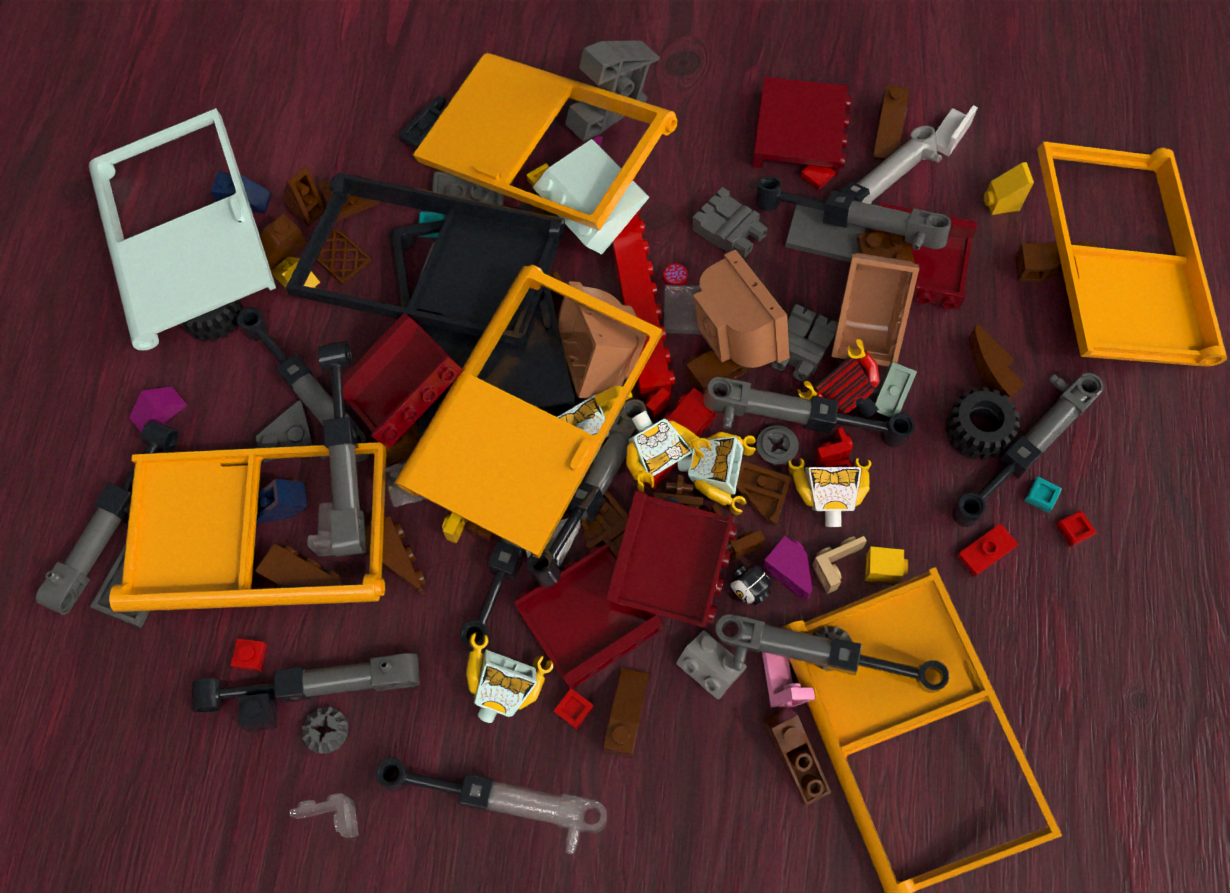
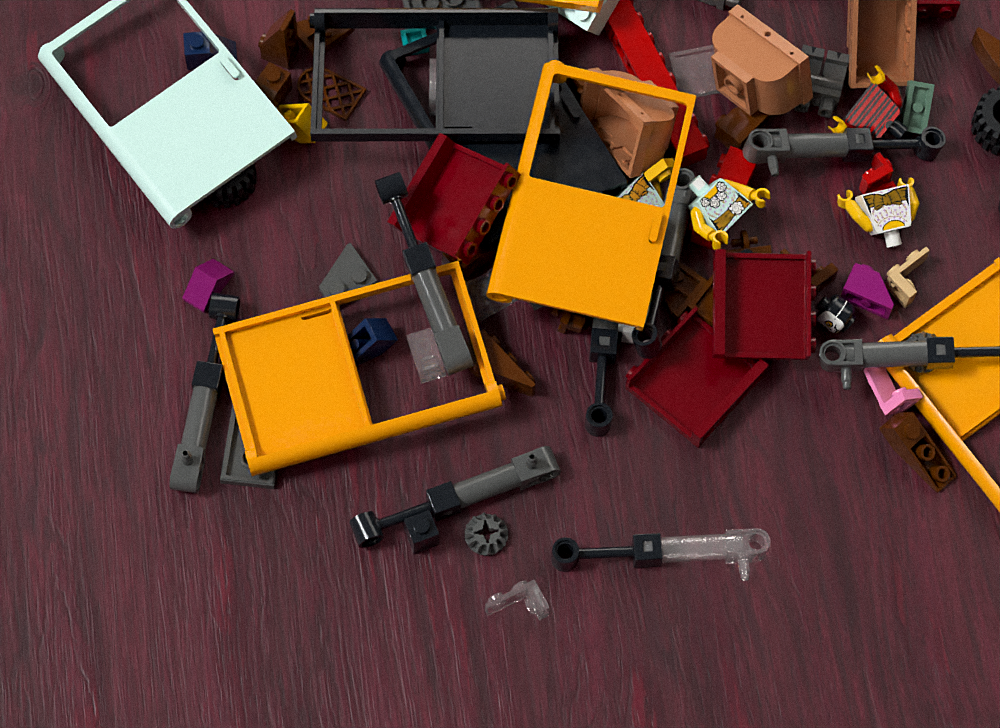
camera: 20 degrees left, 0 degrees up
(248, 655) = (389, 487): red plate -> none
(287, 570) = (398, 399): reddish brown slope -> none
(294, 372) = (340, 221): piece -> none
(453, 527) = (542, 324): yellow plate -> none
(501, 682) = (638, 450): torso -> none
(573, 709) = (708, 460): red plate -> none
(626, 713) = (757, 454): reddish brown slope -> none
(657, 403) = (700, 165): red plate -> none
(675, 275) = (675, 41): red tile -> none
(709, 664) = (819, 393): light grey bracket -> none
(719, 469) = (777, 220): torso -> none
(763, 490) = (820, 227): reddish brown wing -> none
(776, 434) = (816, 174): dark grey gear -> none
(885, 565) = (951, 269): yellow brick -> none

